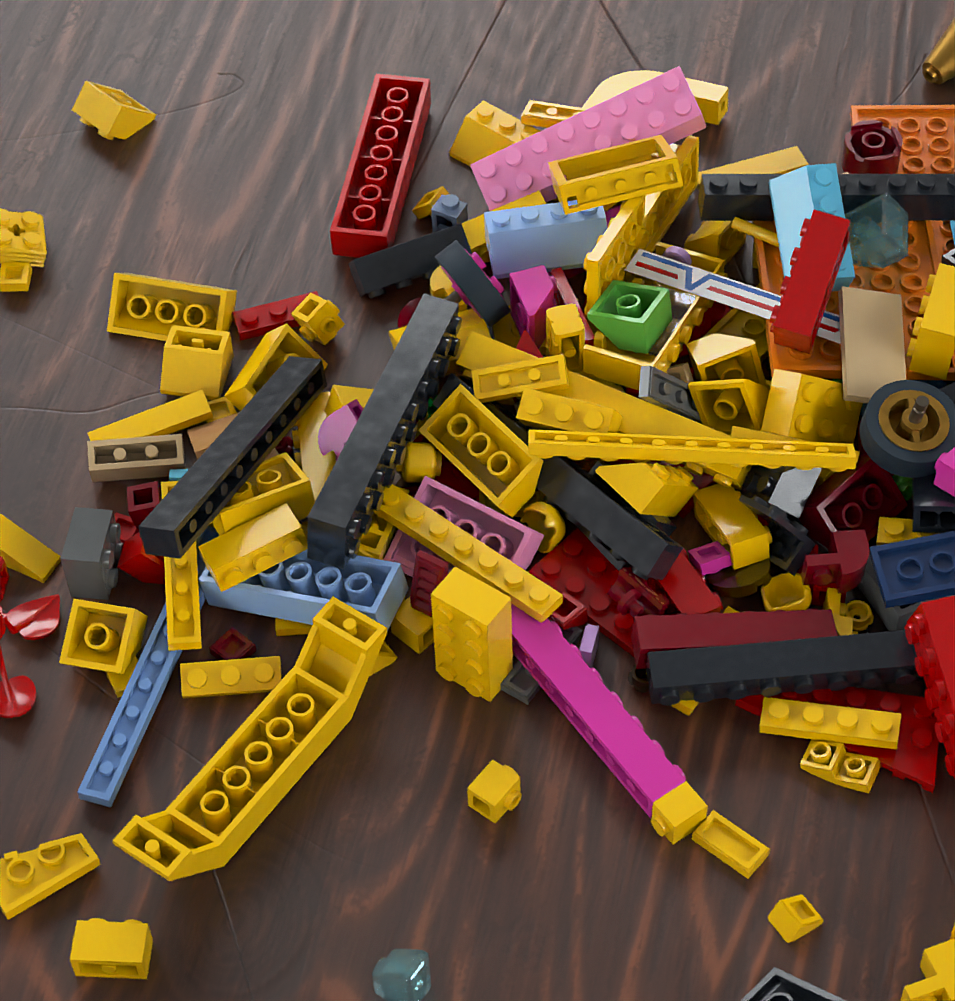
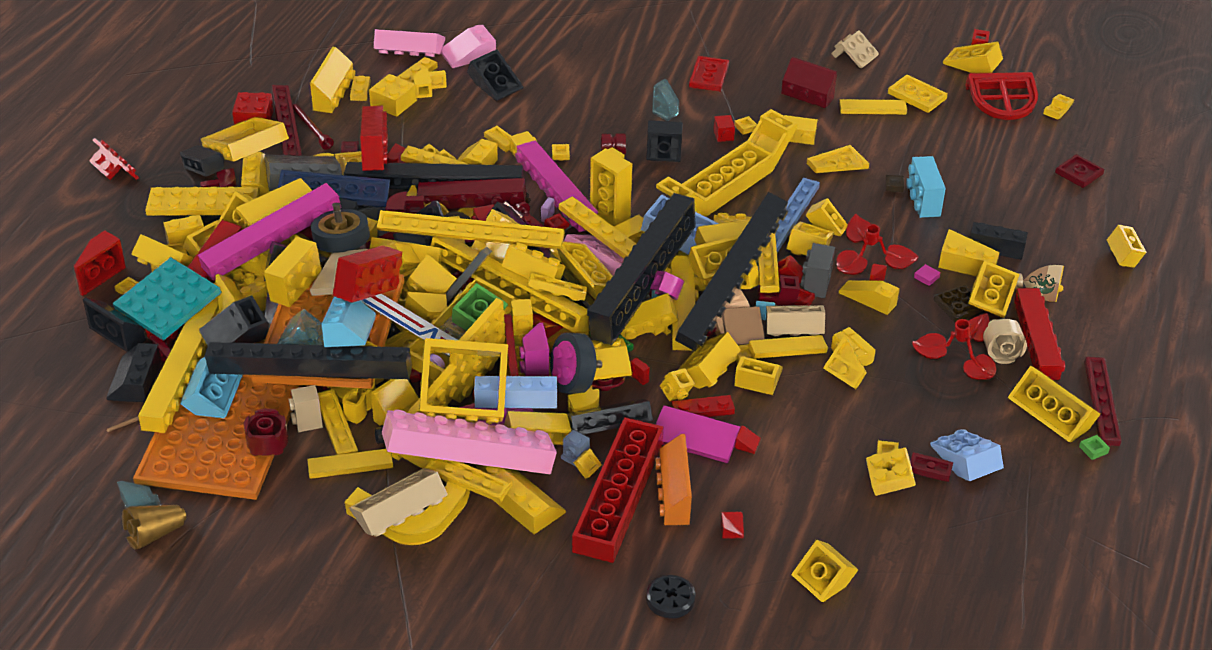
camera: 175 degrees left, 10 degrees down
(48, 431) = (863, 349): none -> yellow brick
(62, 394) = (846, 364): none -> yellow wing
(71, 701) = (827, 217): none -> yellow slope
(152, 305) = (774, 414): yellow slope -> none
(214, 271) = (747, 440): none -> red slope
(225, 953) = (745, 125): none -> yellow plate
(232, 155) = (732, 525): none -> red slope
(271, 929) = (724, 128): none -> red brick
(286, 266) = (703, 435): none -> dark pink tile
(302, 67) = (676, 605): none -> black wheel
(309, 181) = (674, 482): none -> orange slope
(376, 347) = (640, 371): none -> red plate
(391, 840) = (664, 141): none -> black brick
(426, 581) = (628, 215): dark red slope -> none
(496, 835) = (617, 142): none -> dark red wheel
(599, 810) = (560, 152): none -> yellow plate
(681, 52) = (399, 501): none -> tan slope
(763, 762) = (480, 153): none -> yellow slope
(794, 917) = (480, 112): yellow slope -> none

